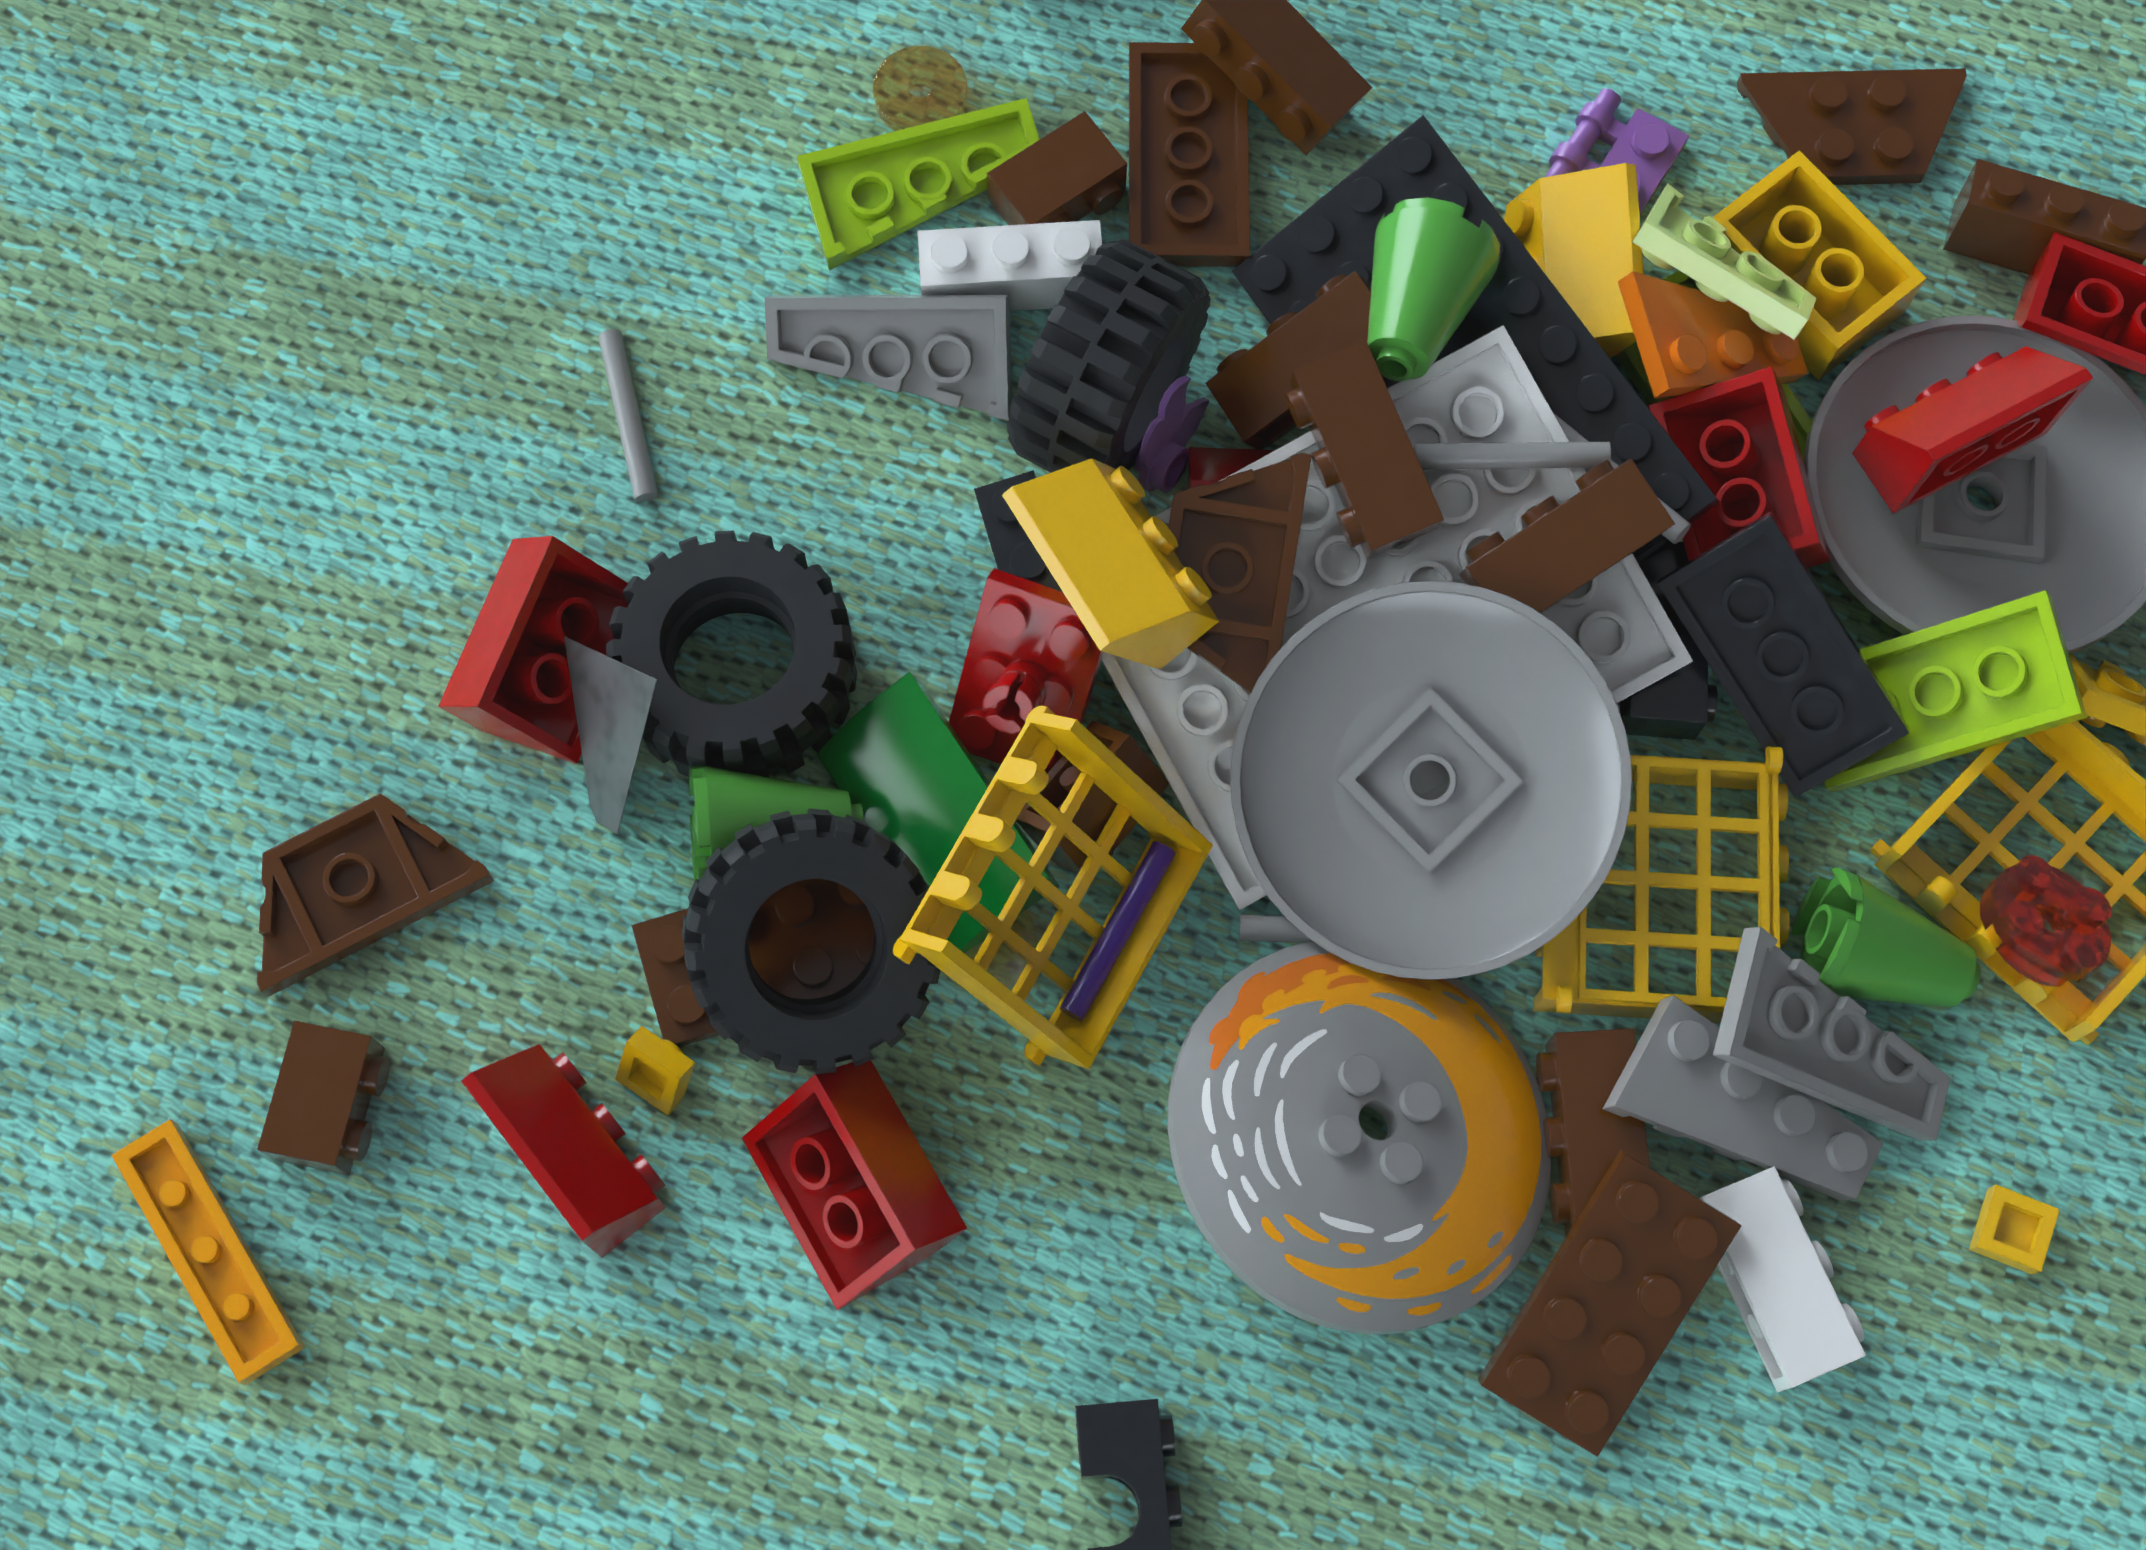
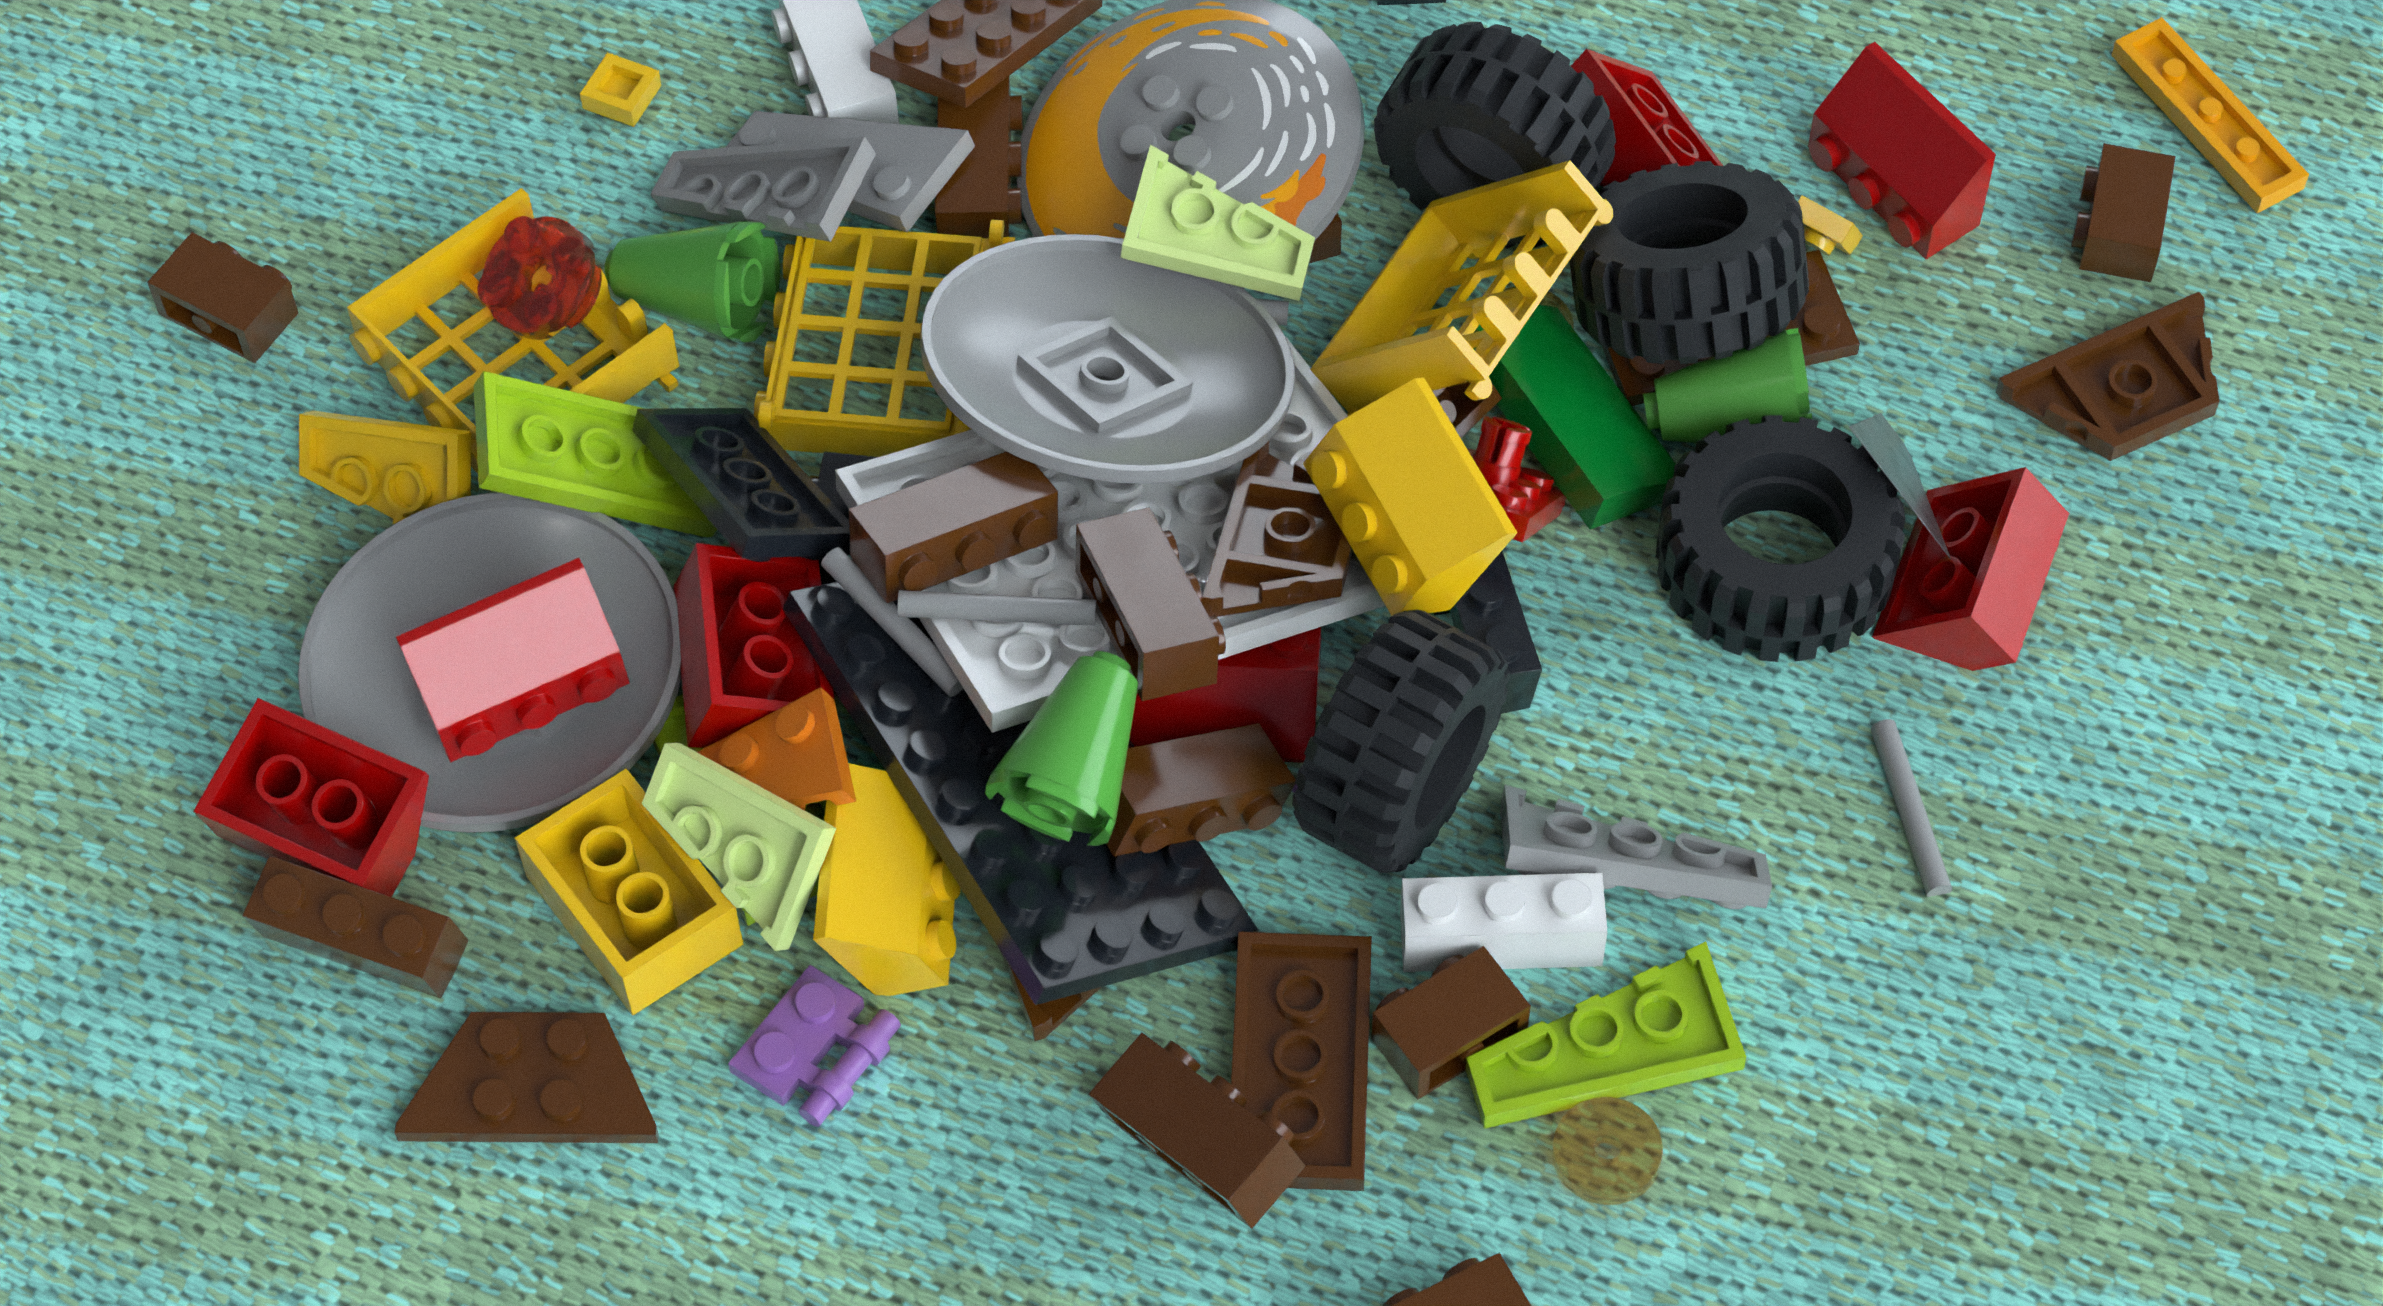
camera: 175 degrees left, 15 degrees down
(1022, 1095) = (1488, 109): none -> black tyre
(1117, 931) = (1414, 295): dark purple bar -> none
(1330, 963) = (1202, 232): none -> yellowish green wing

